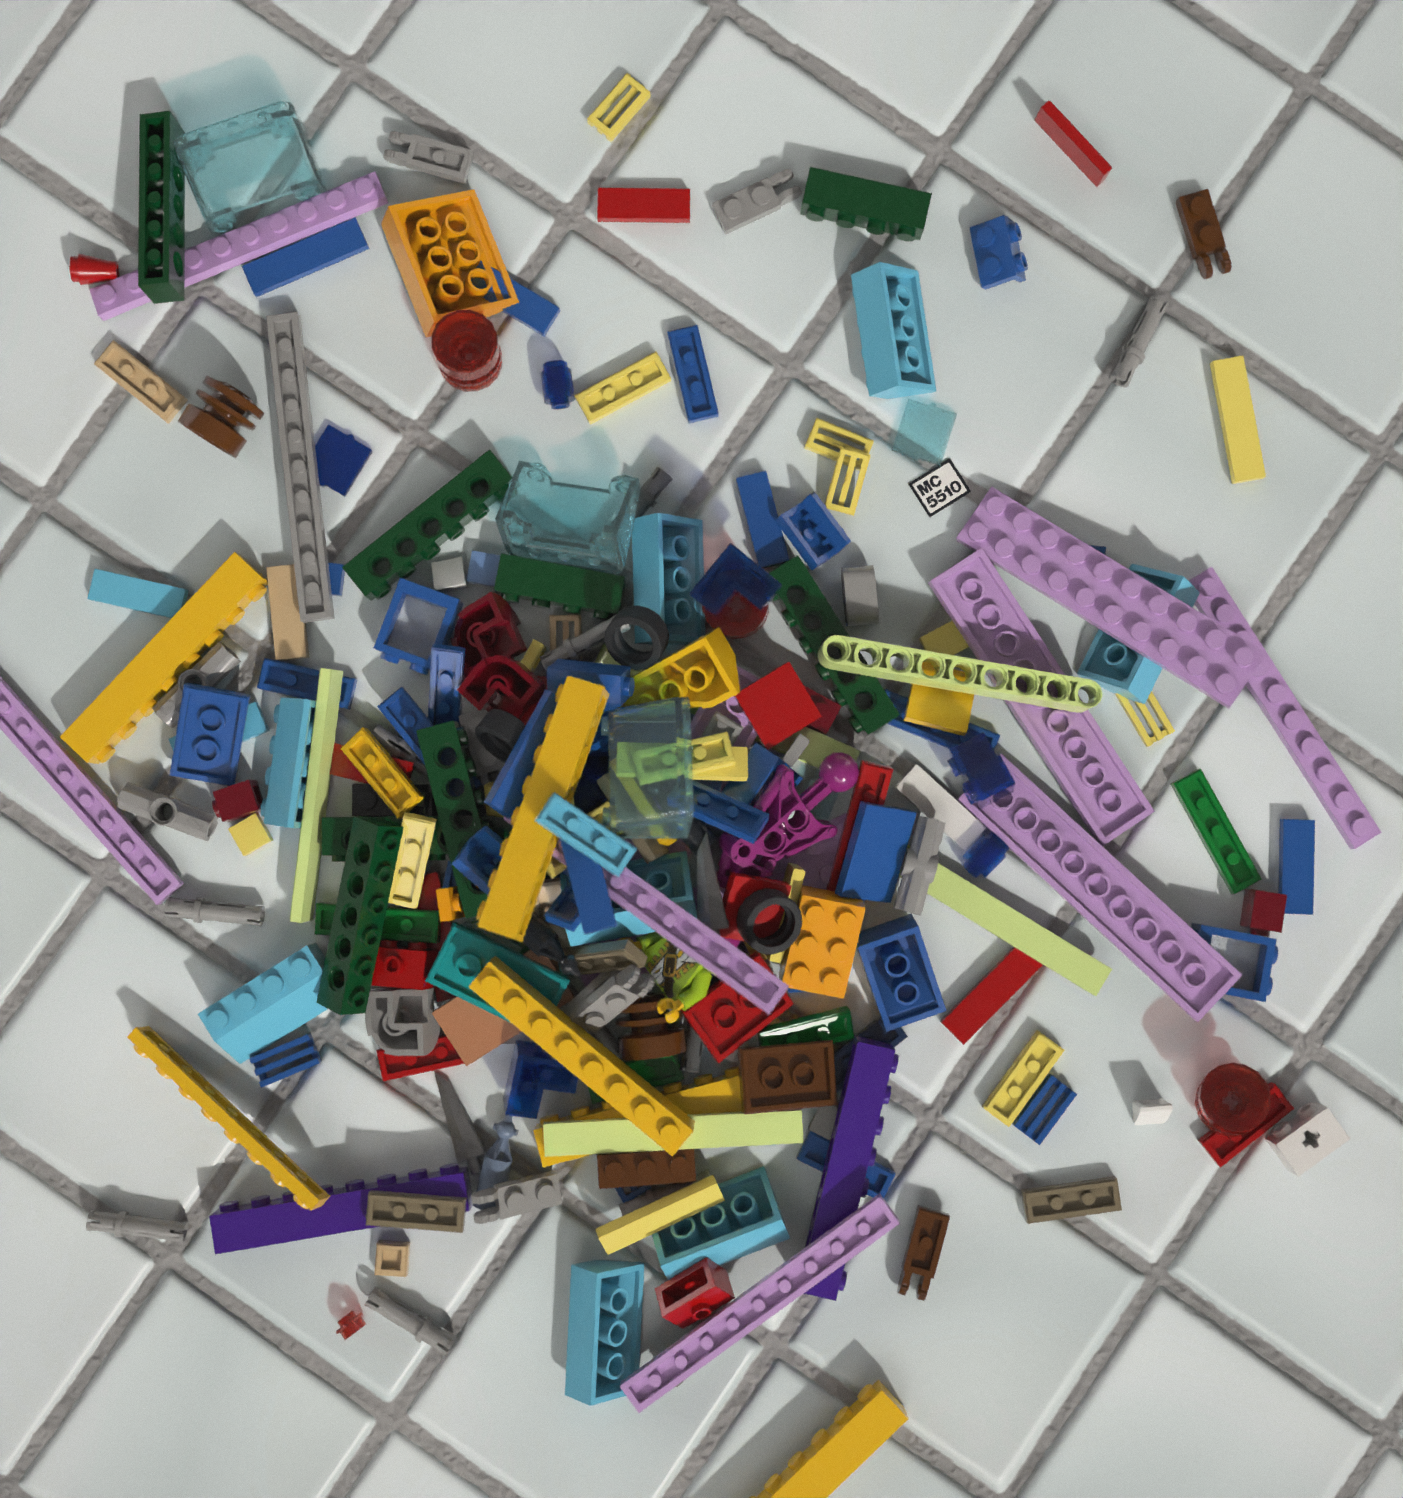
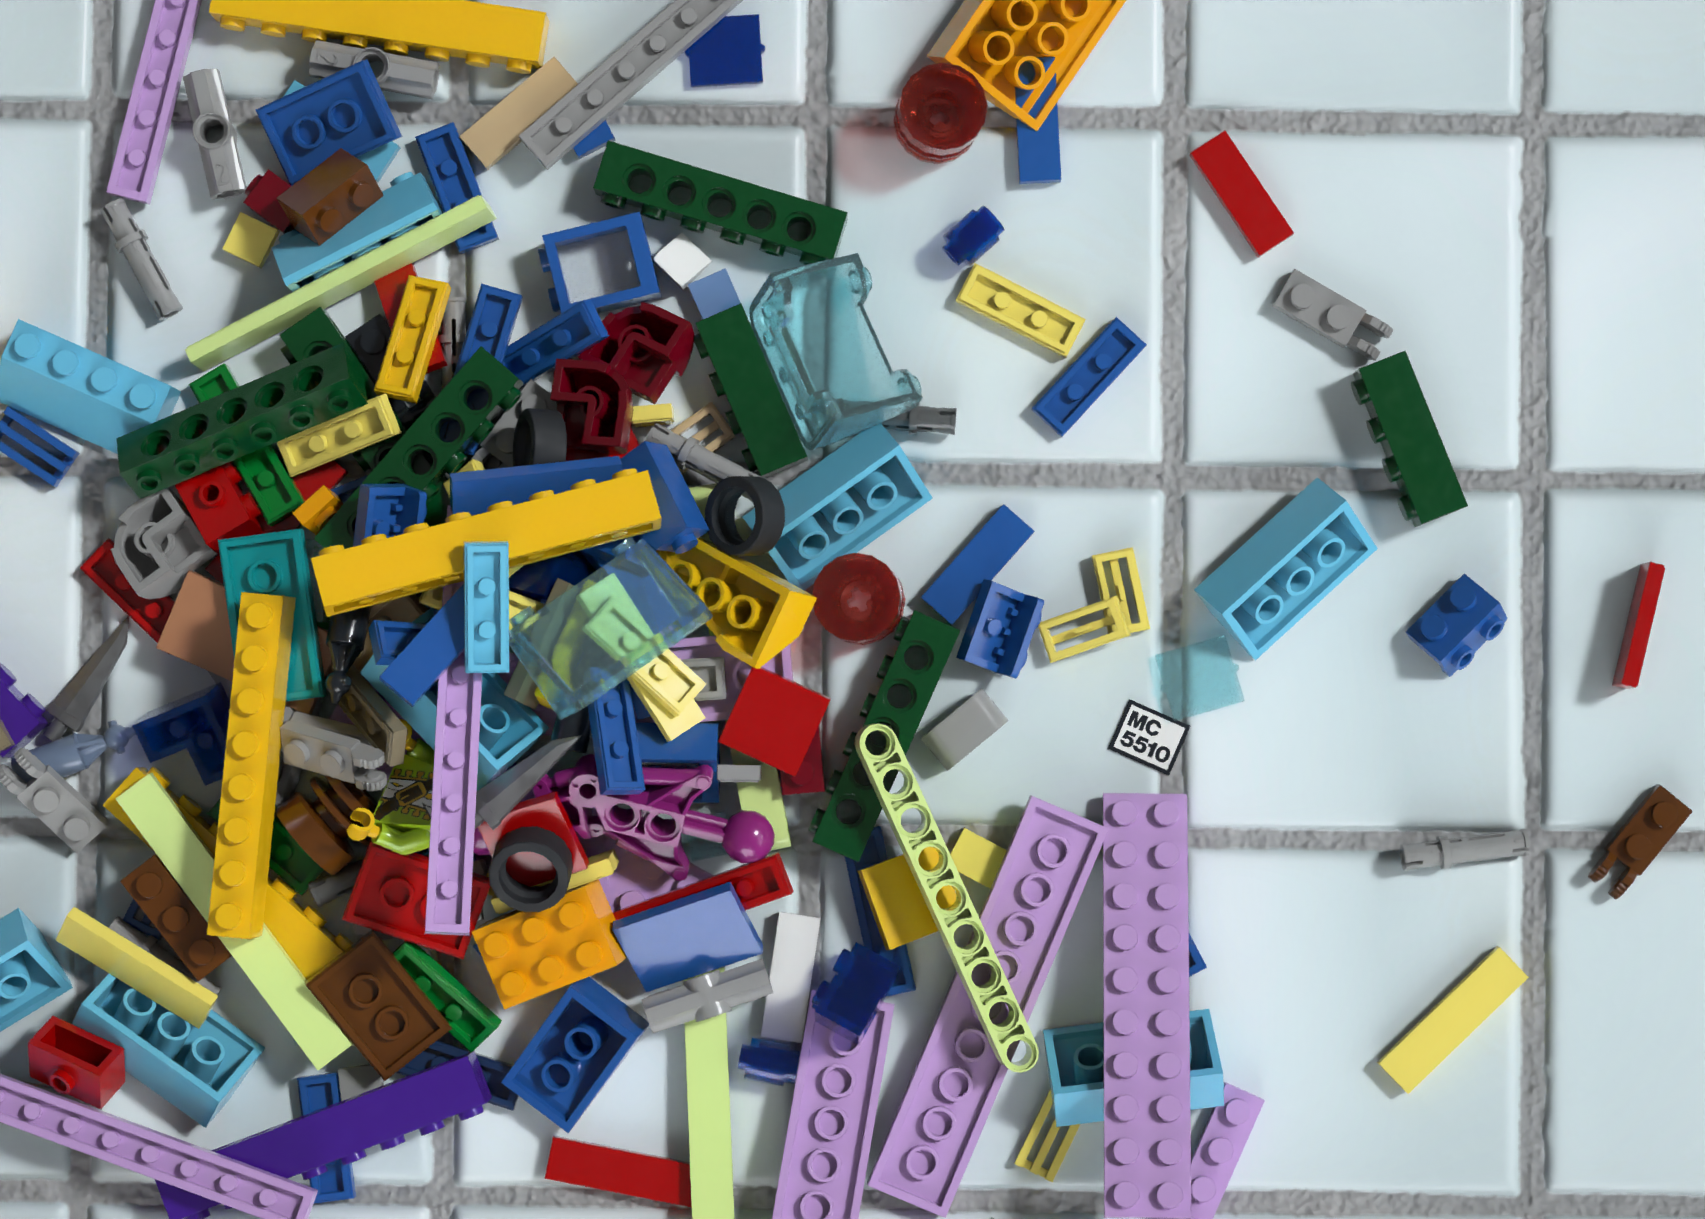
camera: 60 degrees right, 0 degrees up
(256, 763) = (330, 196): none -> reddish brown brick
(602, 127) = (1333, 107): light yellow tile -> none
(733, 574) = (883, 577): clear blue brick -> none

